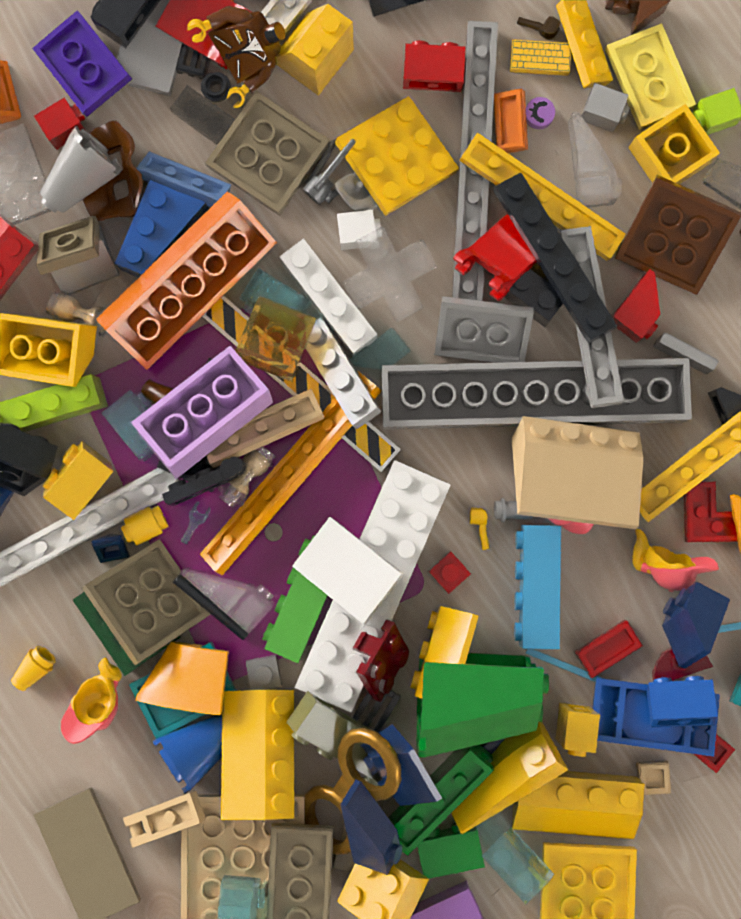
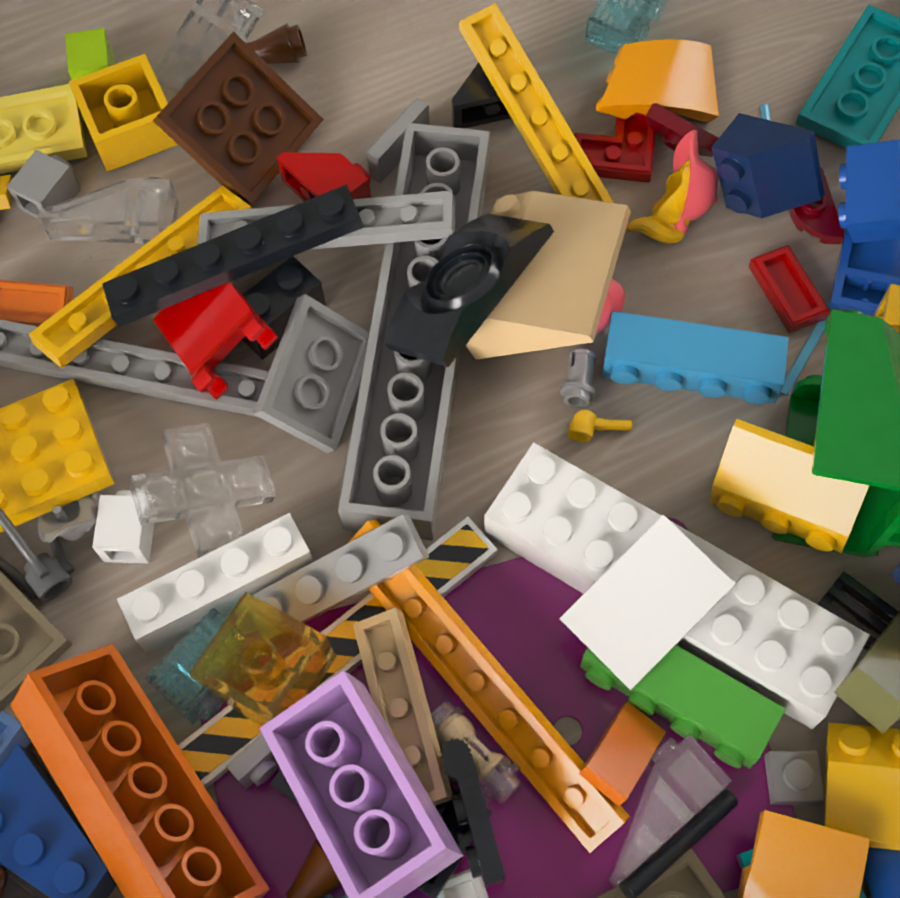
camera: 80 degrees left, 20 degrees down
(195, 520) = (532, 850): clear light blue hand -> none
(217, 343) = (254, 763): none -> light grey plate
(258, 566) = (622, 753): none -> orange tile
(383, 351) = (316, 519): clear light blue slope -> none
(385, 660) = (781, 565): dark red piece -> none
(449, 572) = (660, 478): red plate -> none
(540, 113) = (27, 266): medium lavender tile -> none
(550, 422) = (464, 286): none -> black slope
(724, 559) = (674, 128): none -> dark red plate

